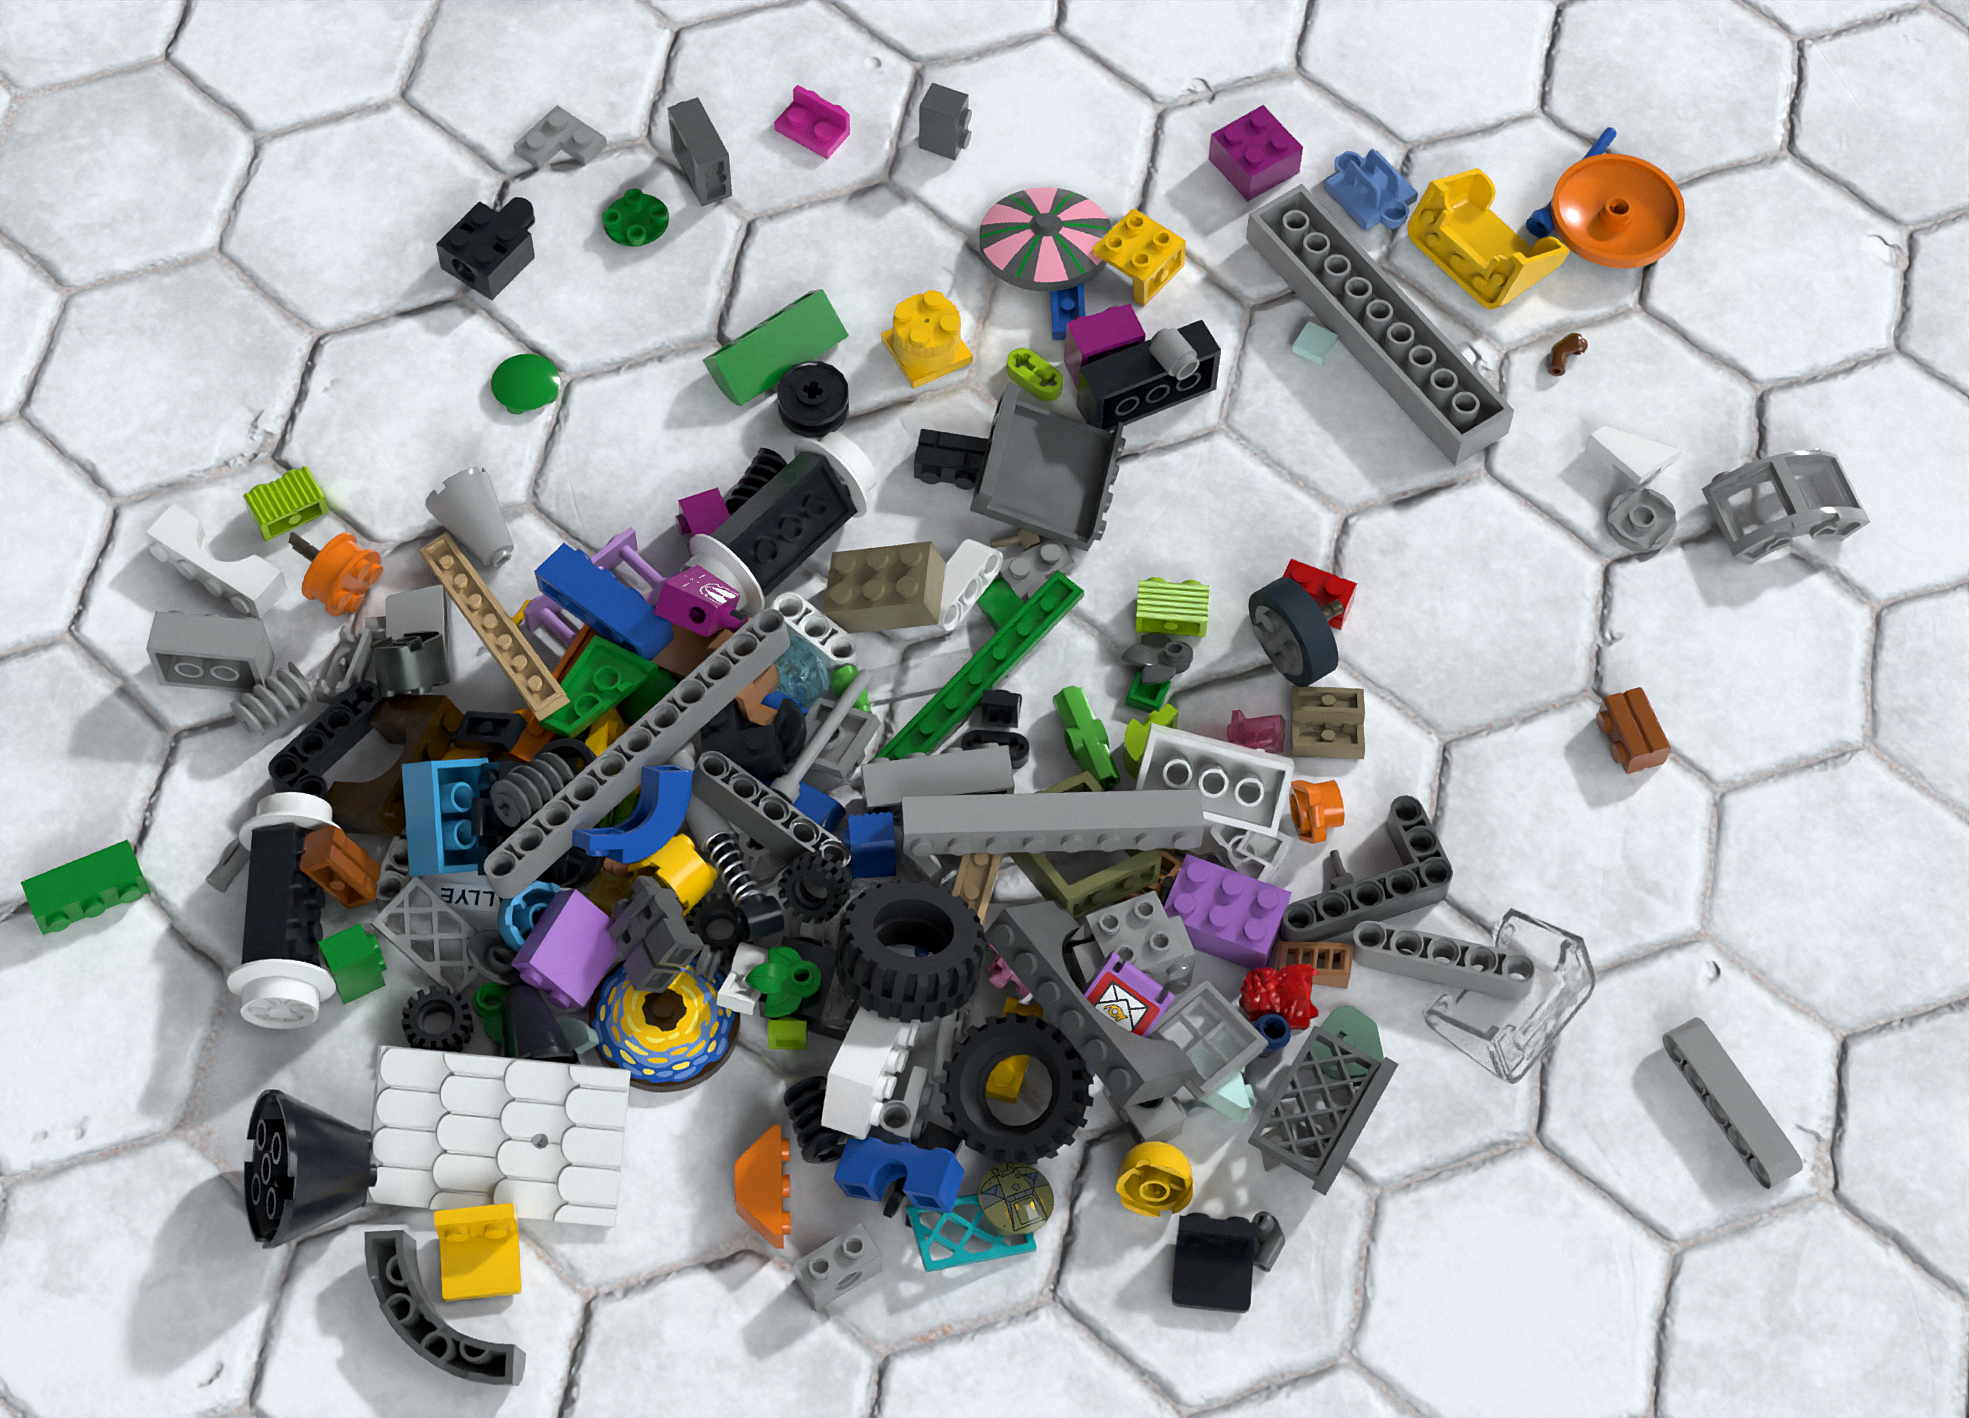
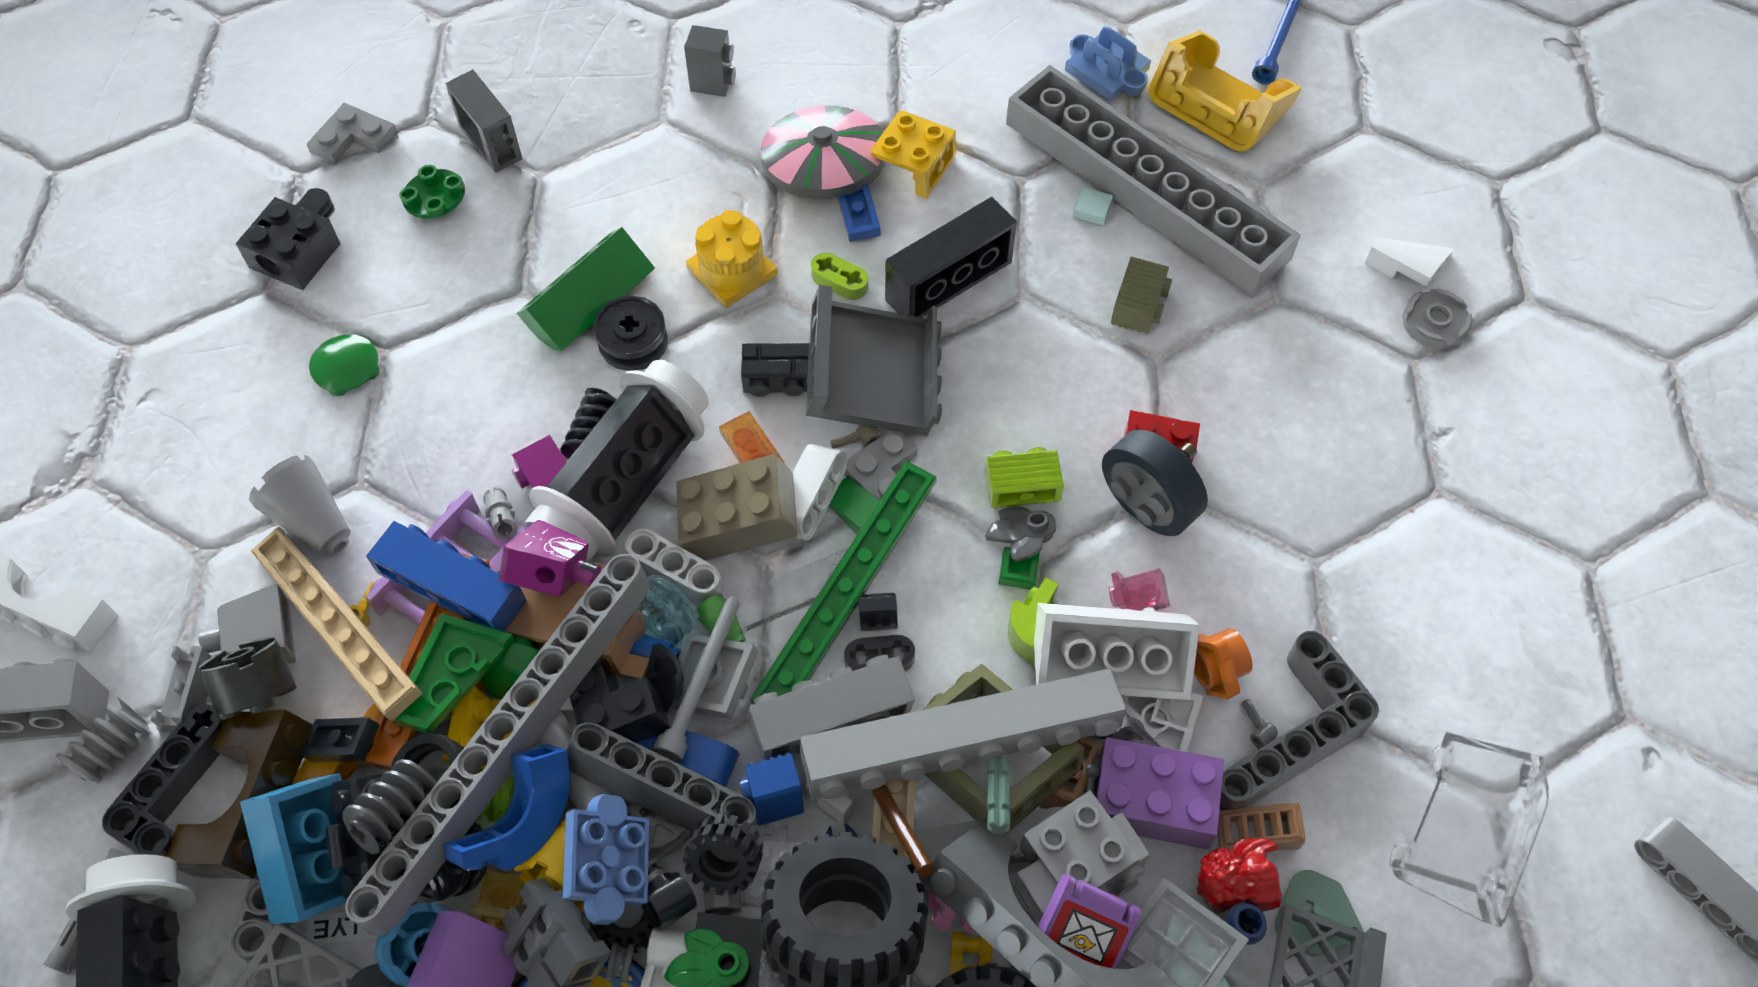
camera: 10 degrees left, 0 degrees up
(285, 503) = (105, 525): lime brick -> none
(338, 572) = (163, 590): orange wheel -> none
(340, 867) = (186, 931): dark orange brick -> none
(658, 555) = (499, 513): none -> light grey pin
(712, 867) = (606, 858): none -> medium blue piece
(814, 122) = (589, 82): dark pink bracket -> none
(908, 523) = (747, 438): none -> clear orange plate
(977, 891) = (903, 831): none -> reddish brown bar
(1070, 879) = (998, 795): none -> sand green axle
(1086, 736) = (969, 626): bright green piece -> none
(1100, 336) = (895, 229): magenta brick -> none
(1174, 353) = (975, 230): light grey brick -> none
(1255, 153) = (997, 48): magenta brick -> none
(1327, 722) = (1203, 567): dark tan slope -> none
(1337, 445) = (1140, 294): none -> olive brick
(1456, 973) = (1409, 794): light grey beam -> none
(1561, 350) = (1324, 170): reddish brown arm -> none
(1617, 211) = (1332, 48): orange dish -> none
(1633, 730) = (1500, 522): dark orange brick -> none
(1782, 499) = (1564, 278): window -> none

